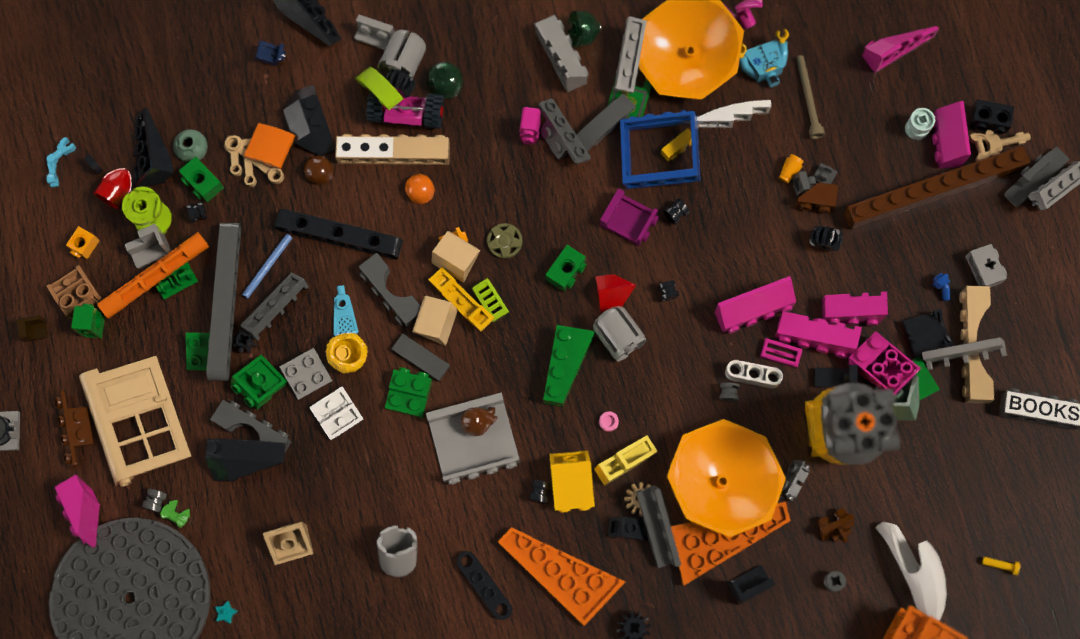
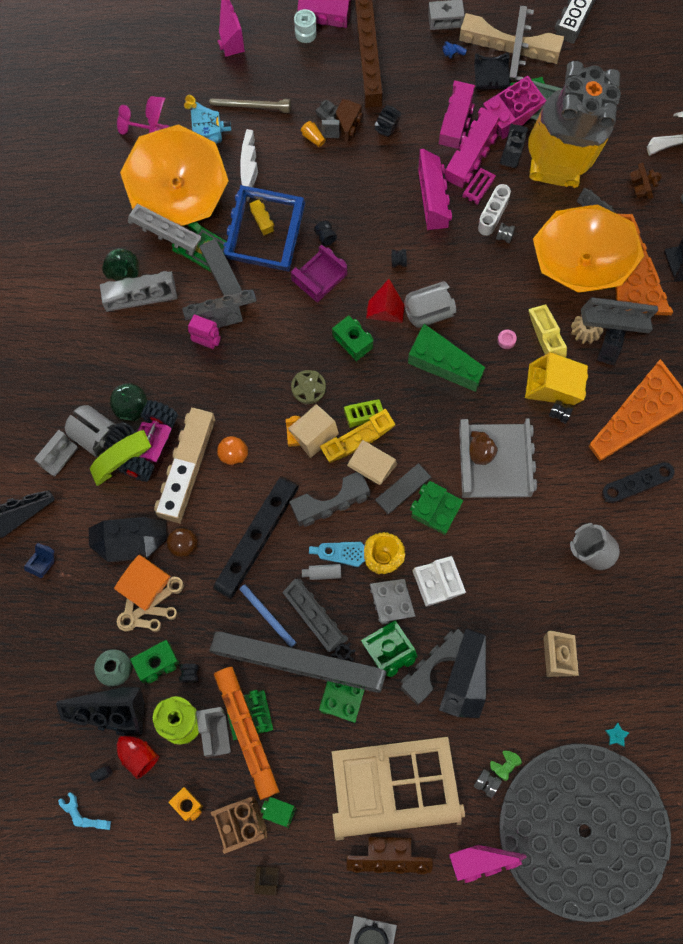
camera: 75 degrees left, 5 degrees down
(319, 303) = (323, 572): none -> light grey cylinder

